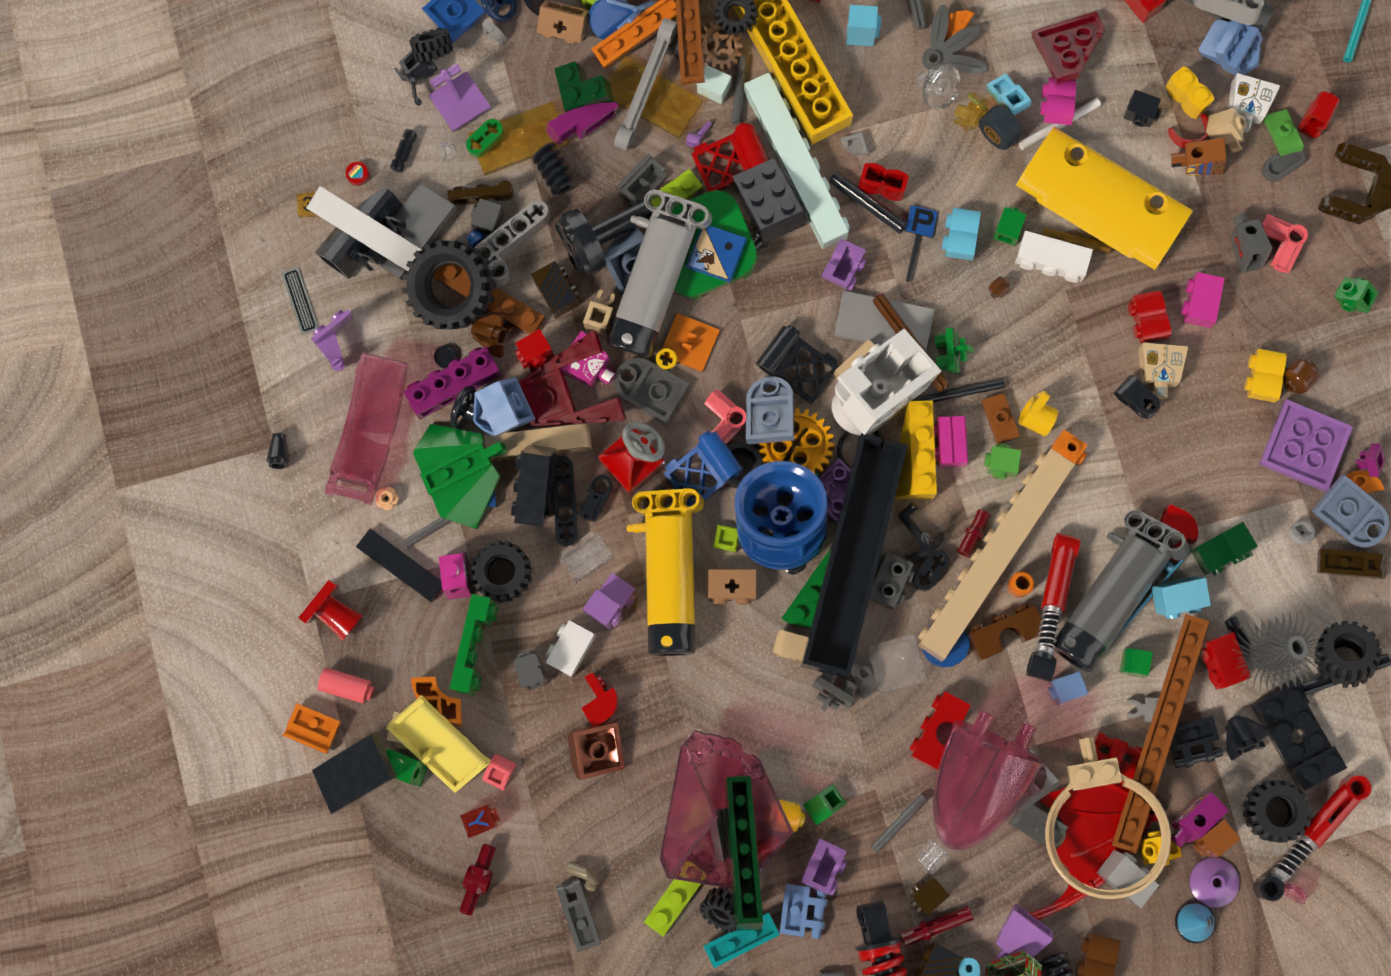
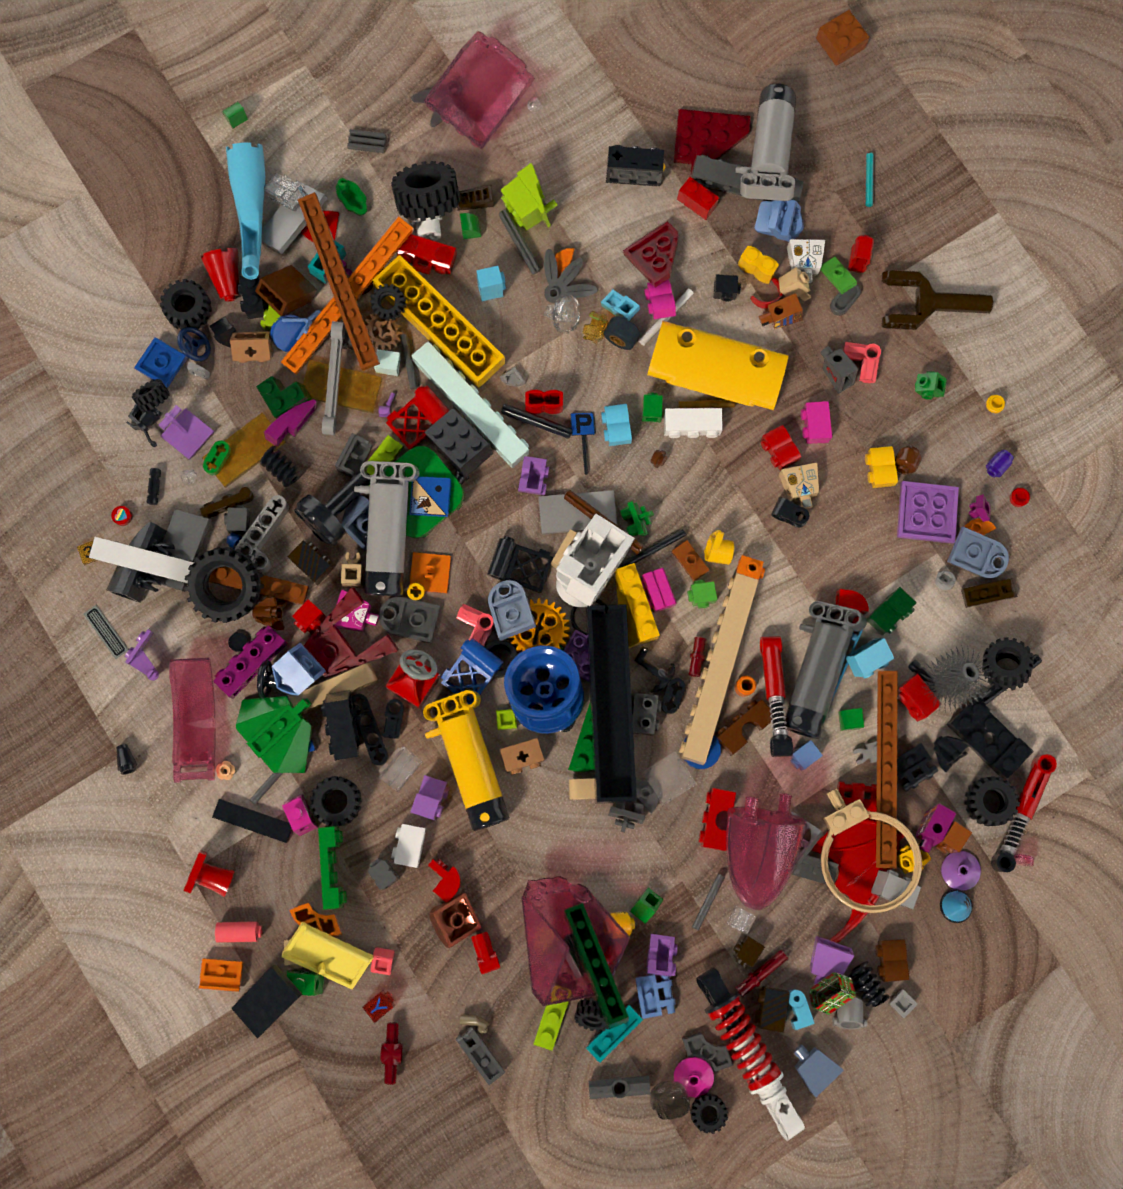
camera: 30 degrees left, 0 degrees up
(620, 804) = (486, 956): none -> red piece

